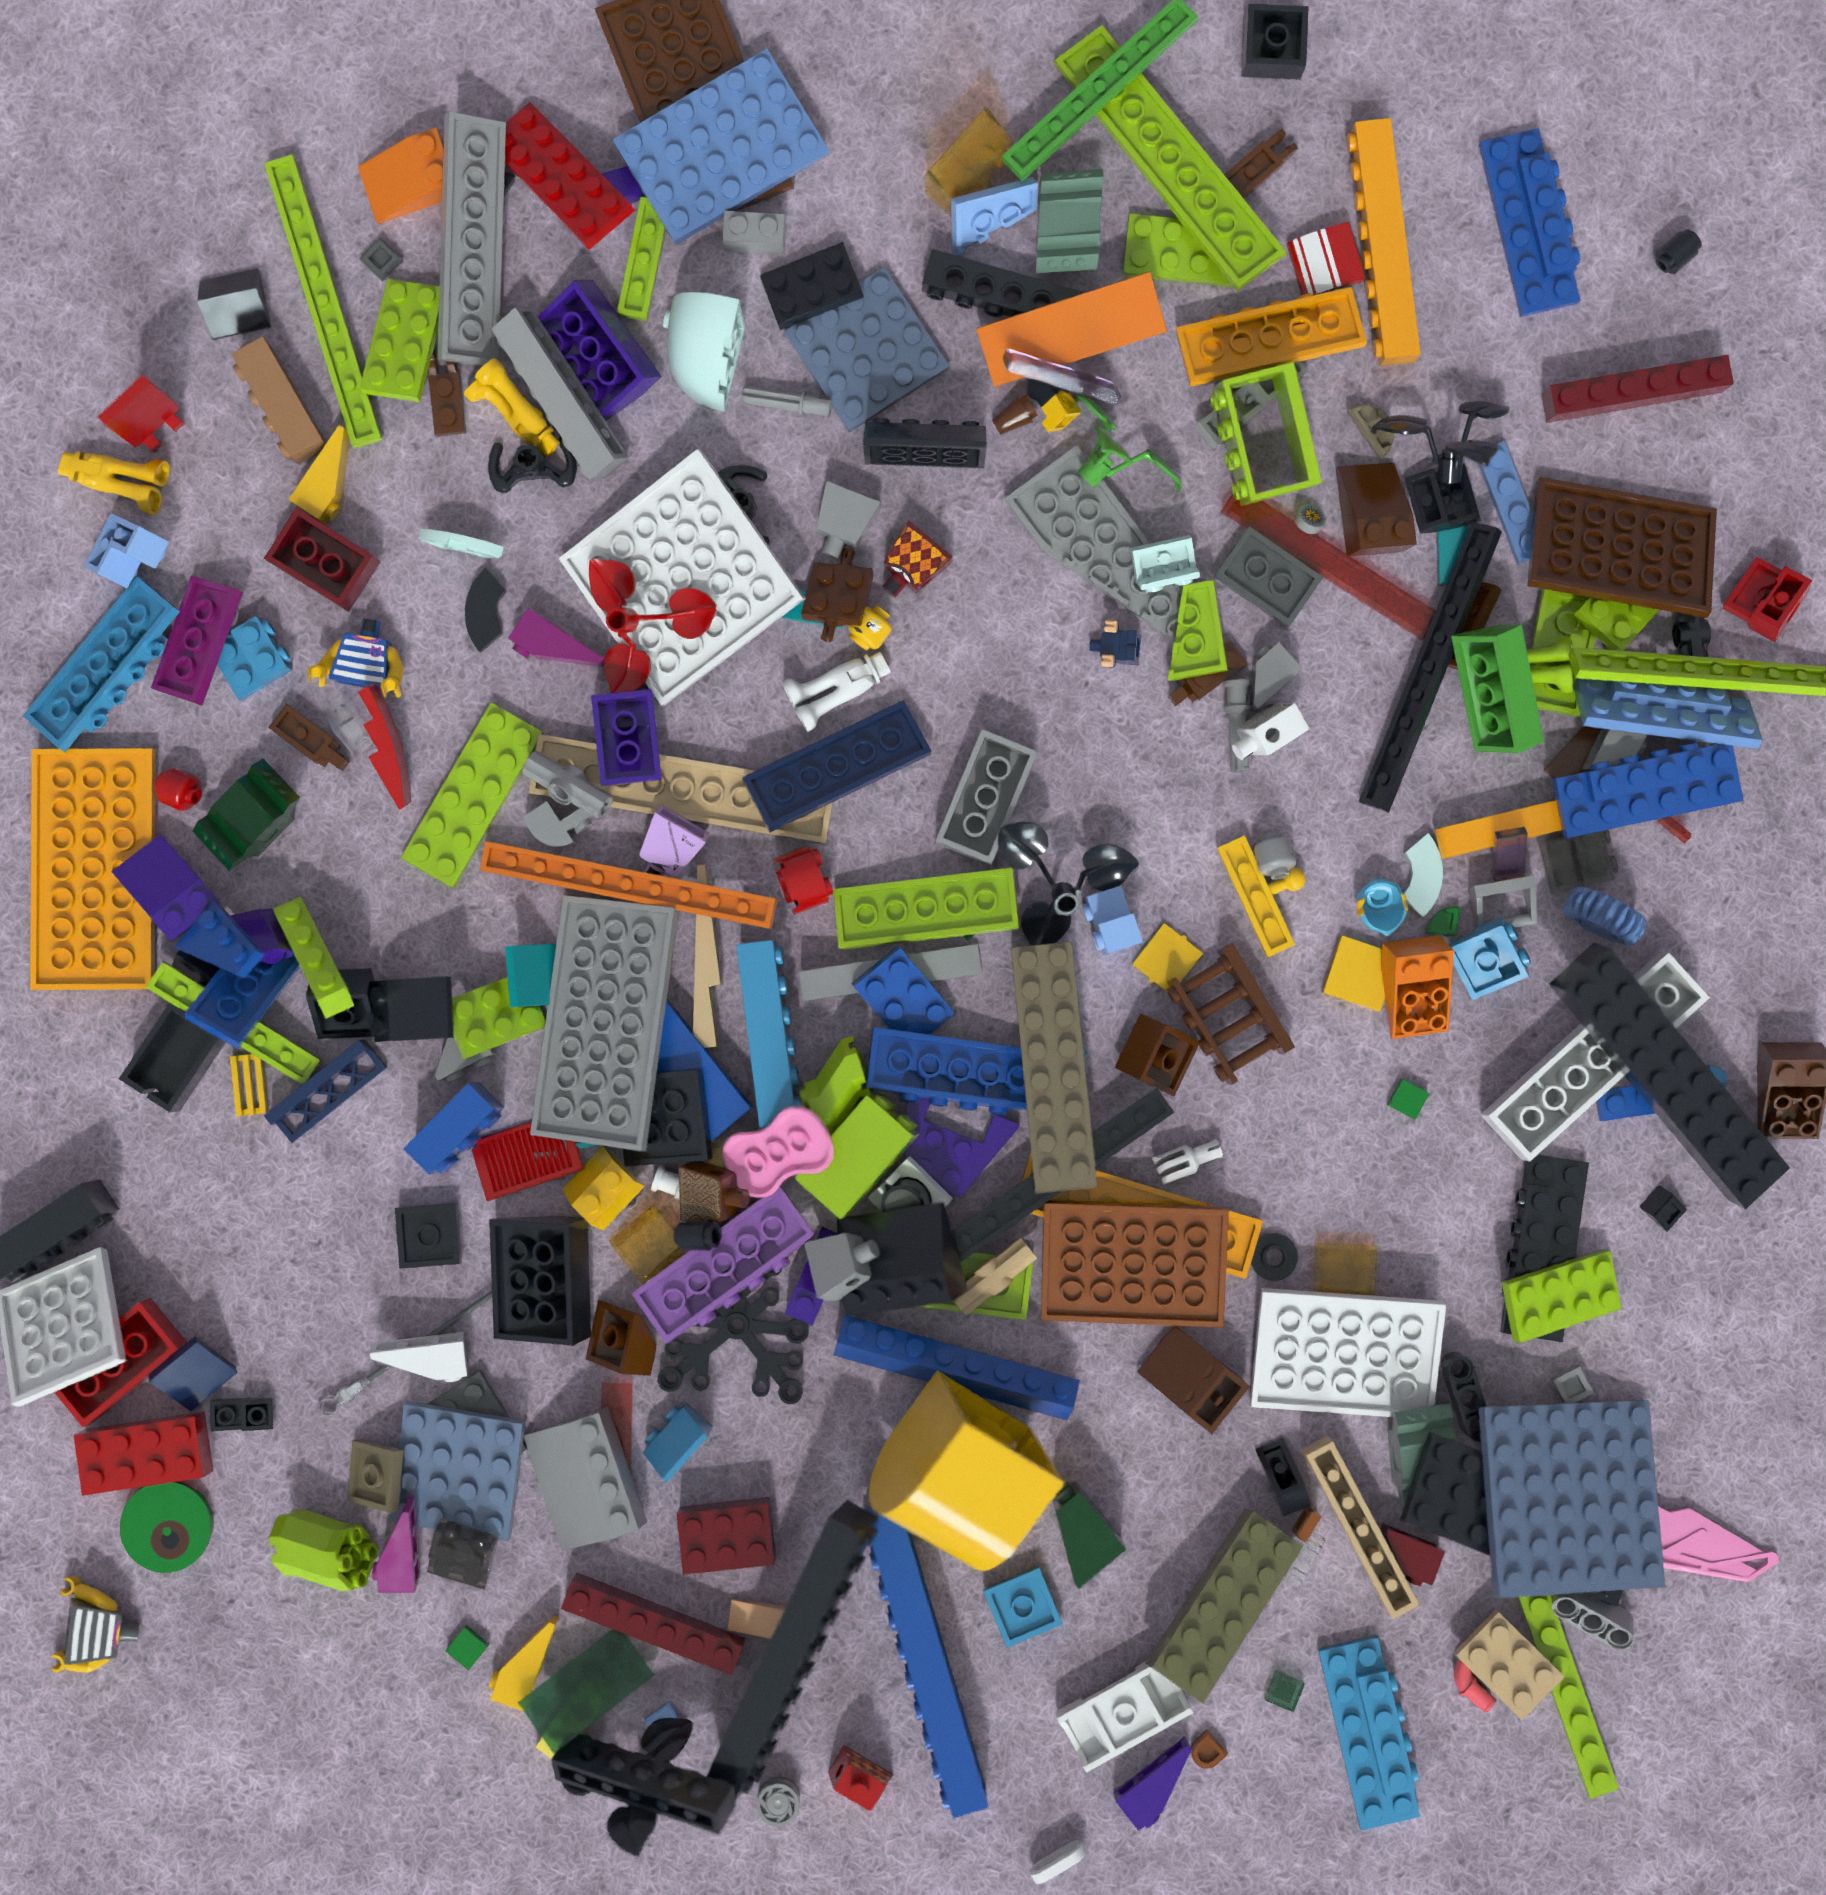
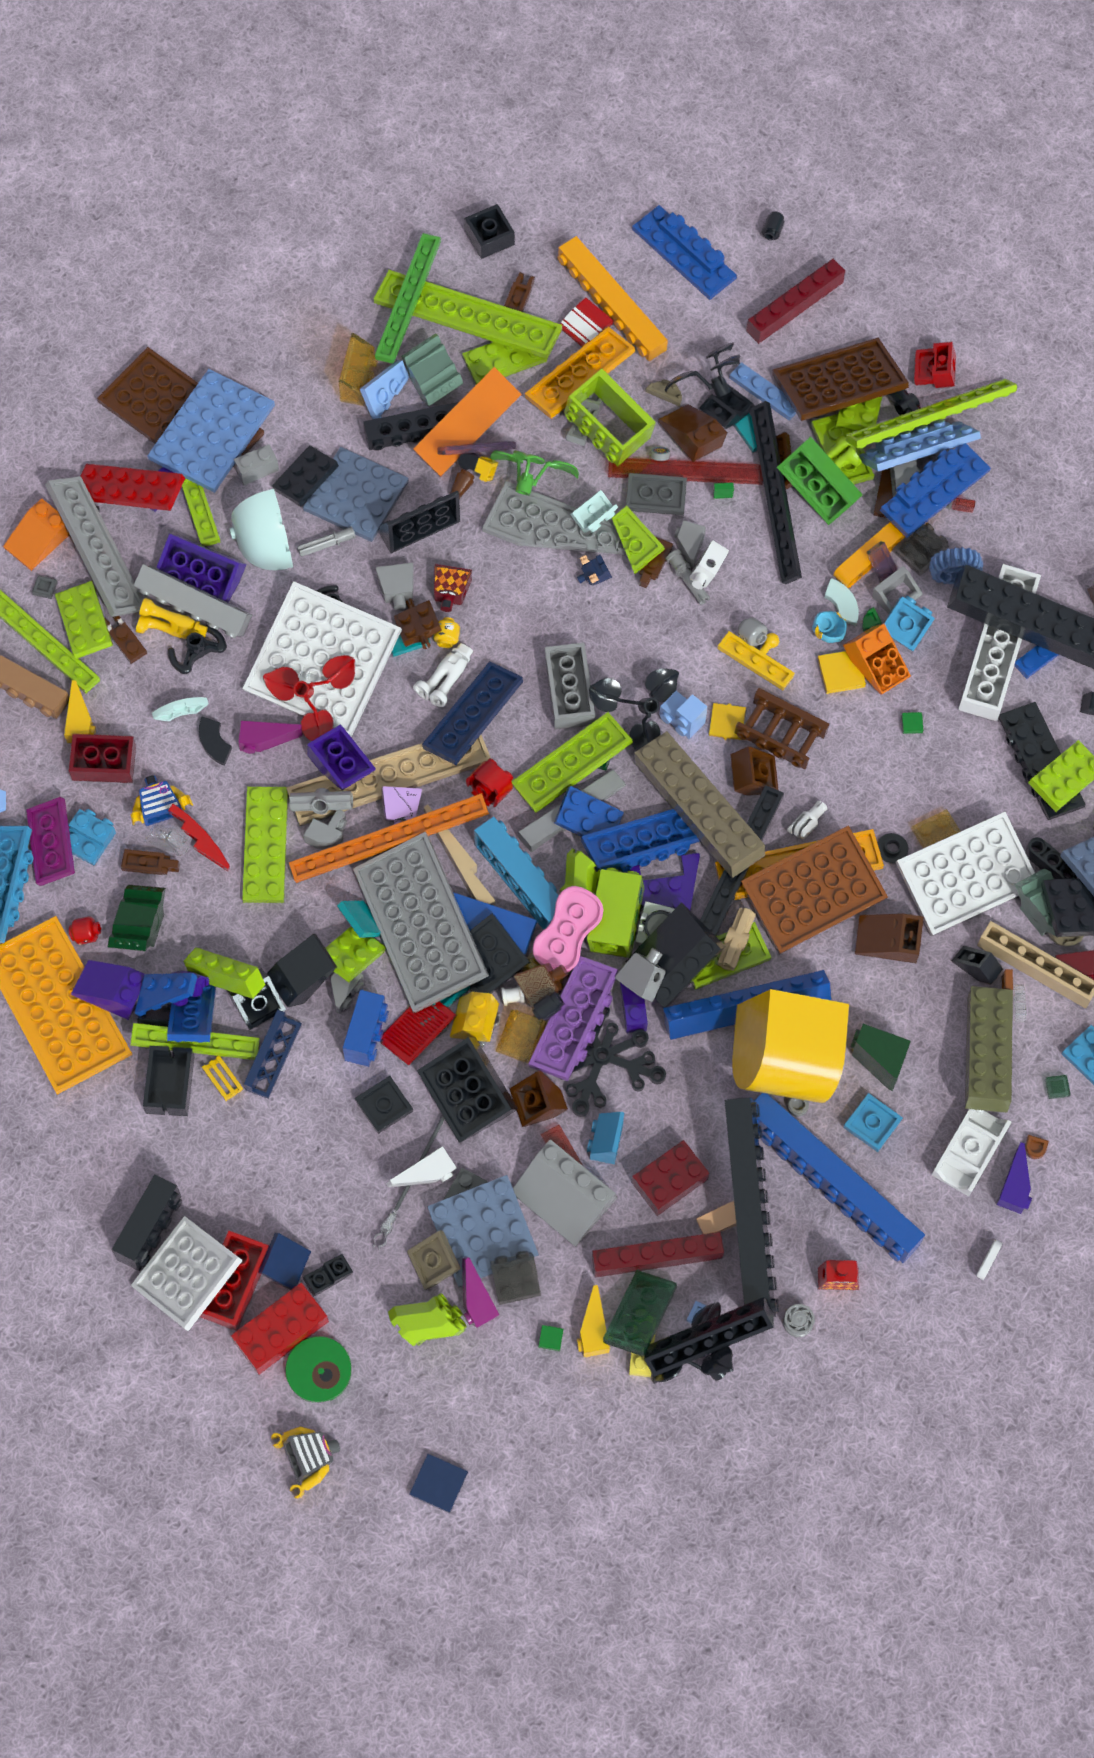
camera: 30 degrees left, 20 degrees down
(233, 1747) = (438, 1483): none -> dark blue tile
(1362, 623) = (723, 490): none -> green tile

